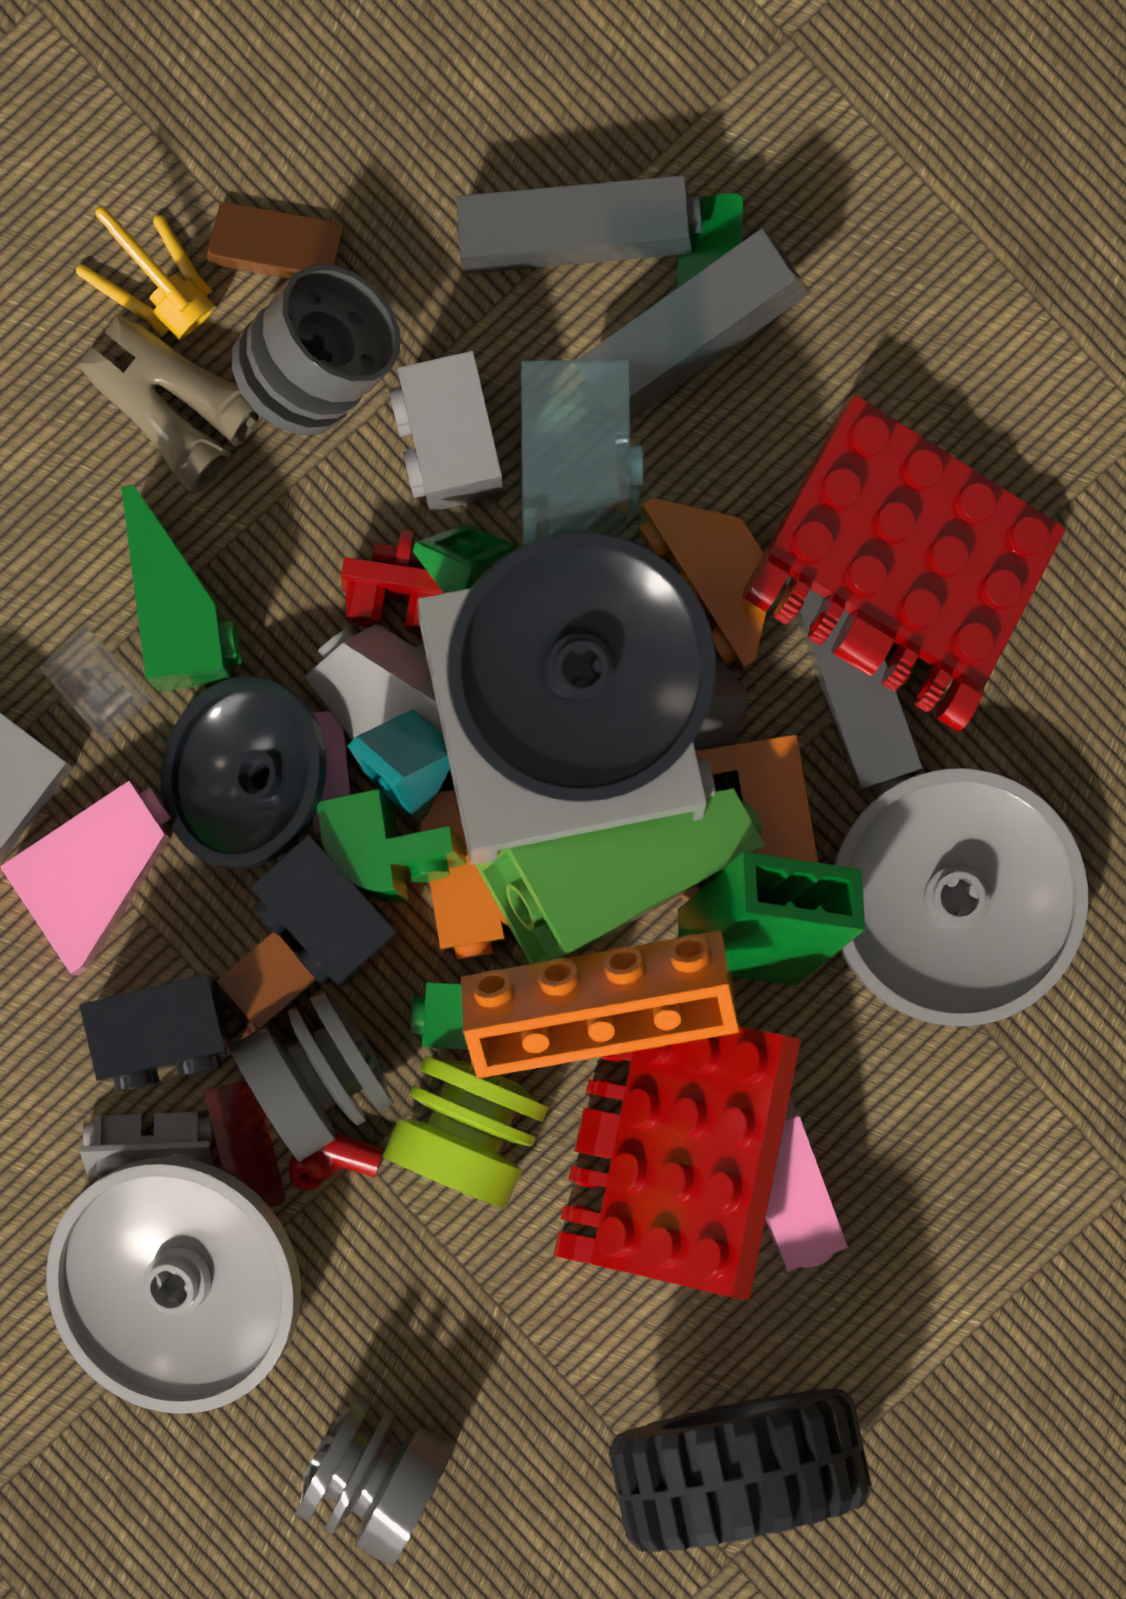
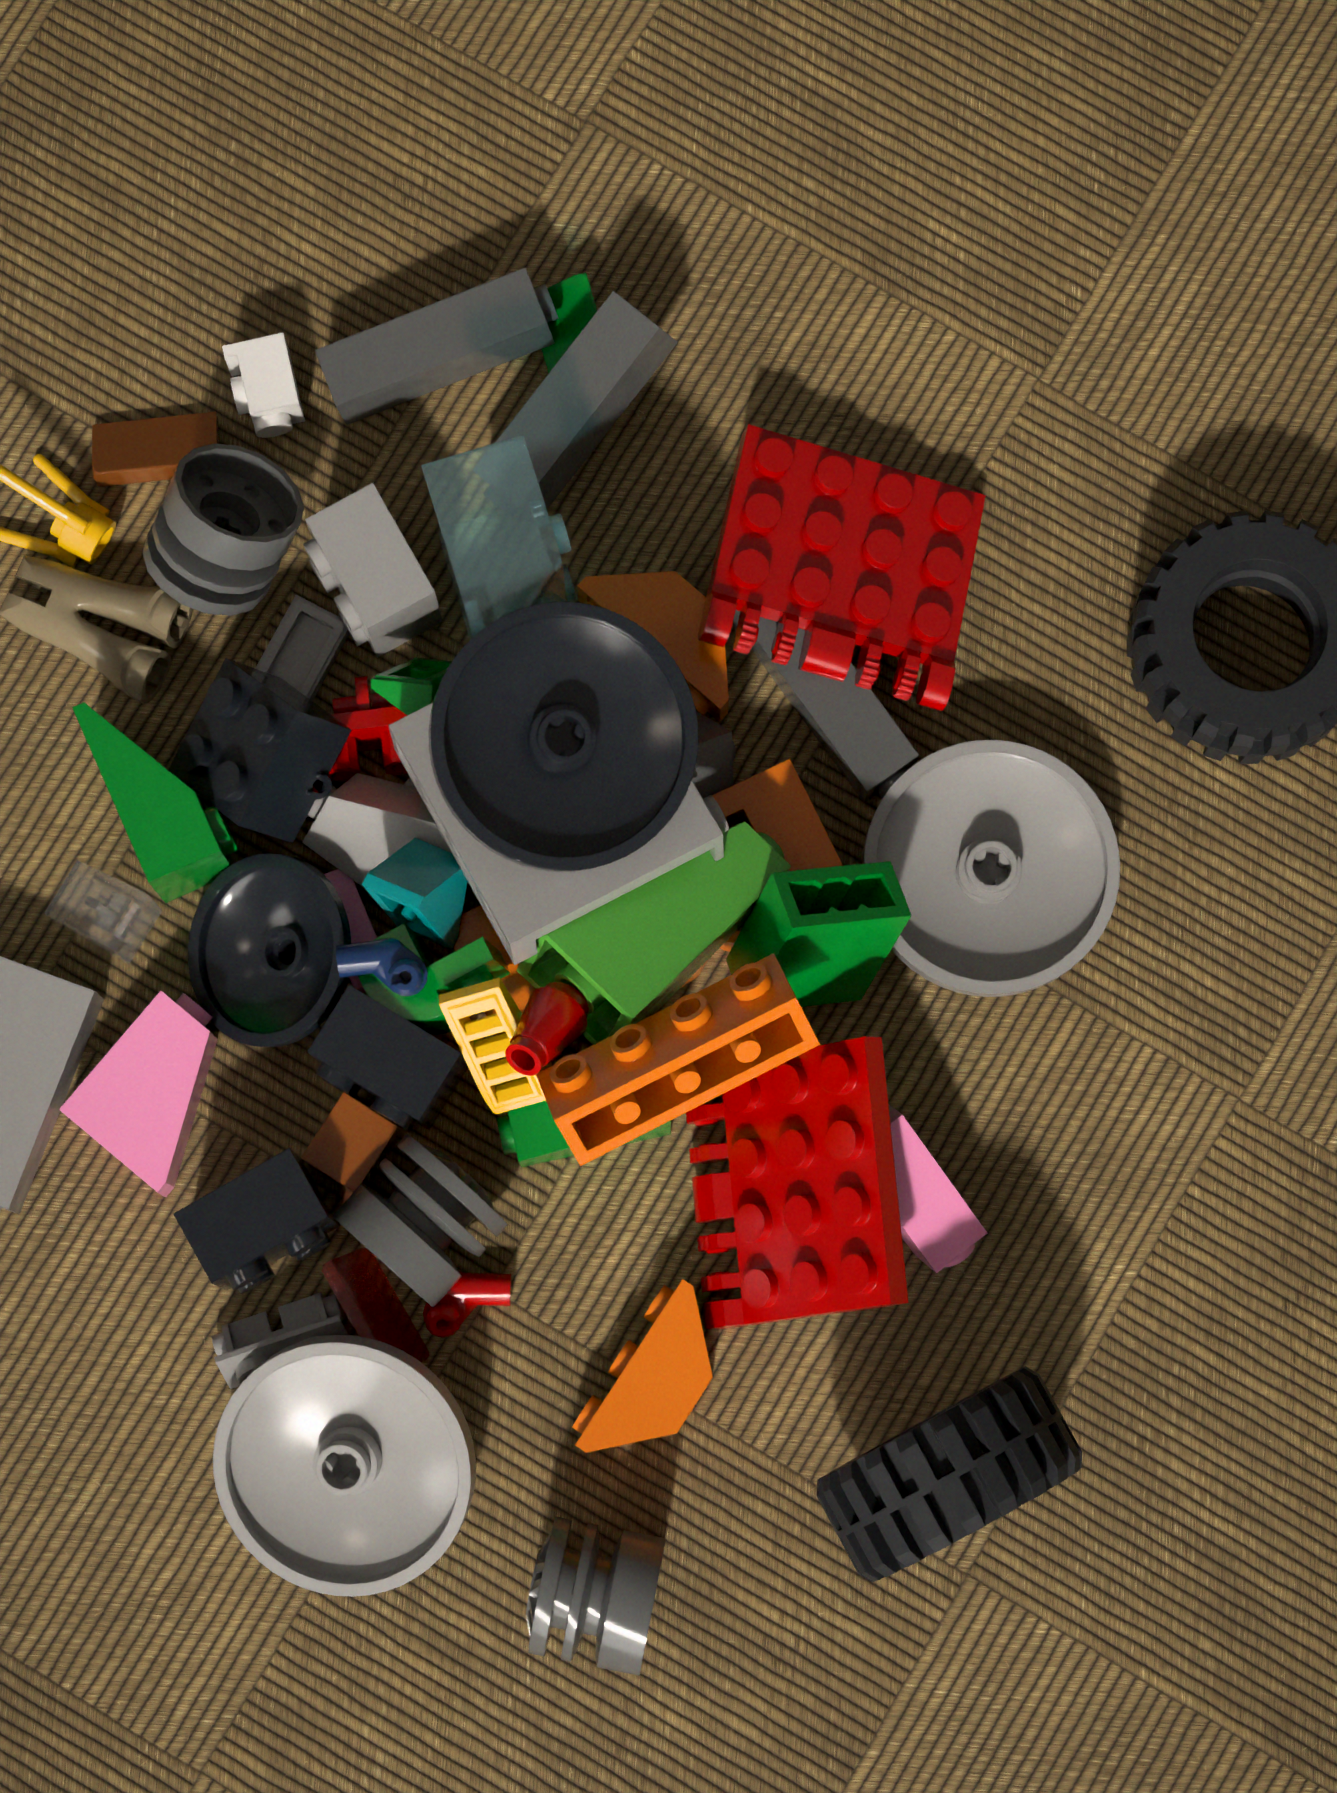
camera: 15 degrees left, 5 degrees down
(289, 578) = (259, 751): none -> black brick
(347, 497) = (304, 646): none -> light grey tile
(352, 823) = (387, 960): none -> dark blue arm
(399, 213) = (266, 384): none -> white brick
(432, 939) = (496, 1080): none -> yellow slope
(465, 1132) = (585, 1229): lime wheel -> none
(486, 932) = (548, 1025): none -> red cone
(491, 1290) = (654, 1381): none -> orange slope

